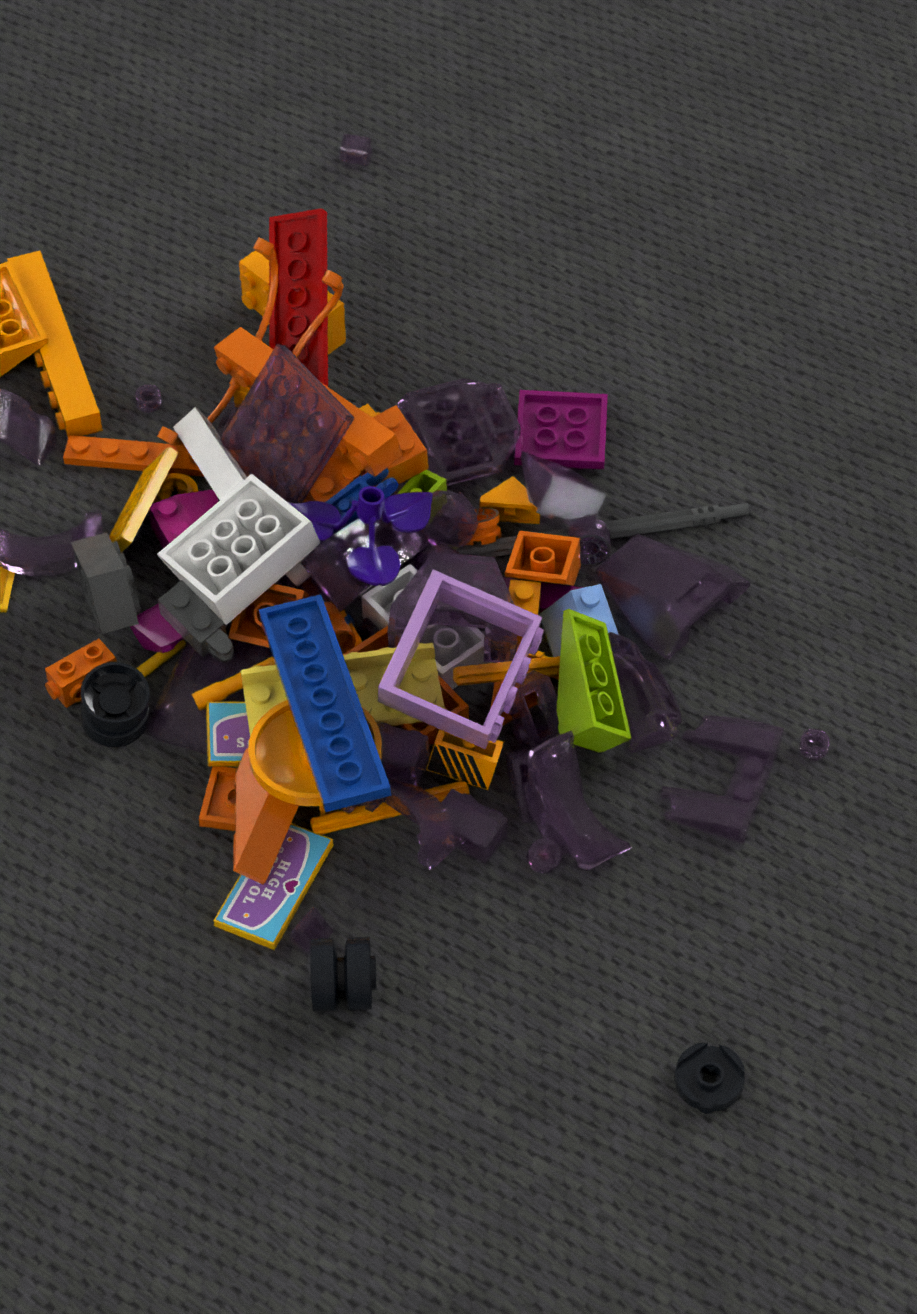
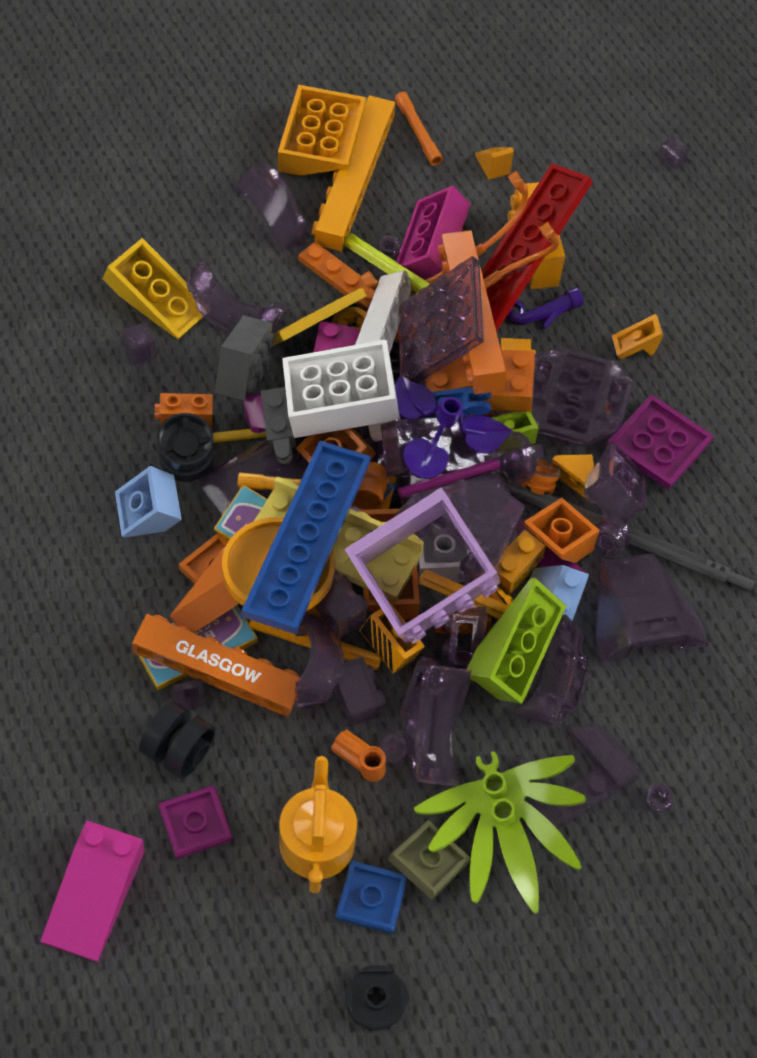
camera: 30 degrees right, 5 degrees up
(105, 277) = (428, 147): none -> orange piece
(117, 783) = (148, 503): none -> light blue slope
(163, 414) = (382, 261): none -> neon yellow axle
(183, 360) = (432, 217): none -> dark pink slope
(187, 253) = (496, 161): none -> light orange slope
(319, 883) = (216, 664): none -> orange brick
(359, 367) = (569, 300): none -> dark purple plant
(372, 1162) = (93, 890): none -> dark pink slope
(404, 573) = (448, 478): none -> magenta bar
(414, 1041) = (195, 822): none -> magenta tile
(469, 338) = (642, 335): none -> light orange slope
(518, 879) = (358, 754): none -> orange piece
(542, 966) = (317, 830): none -> light orange piece
(632, 997) = (371, 897): none -> blue tile
(658, 928) = (426, 869): none -> olive tile
(684, 839) = (501, 805): none -> lime plant

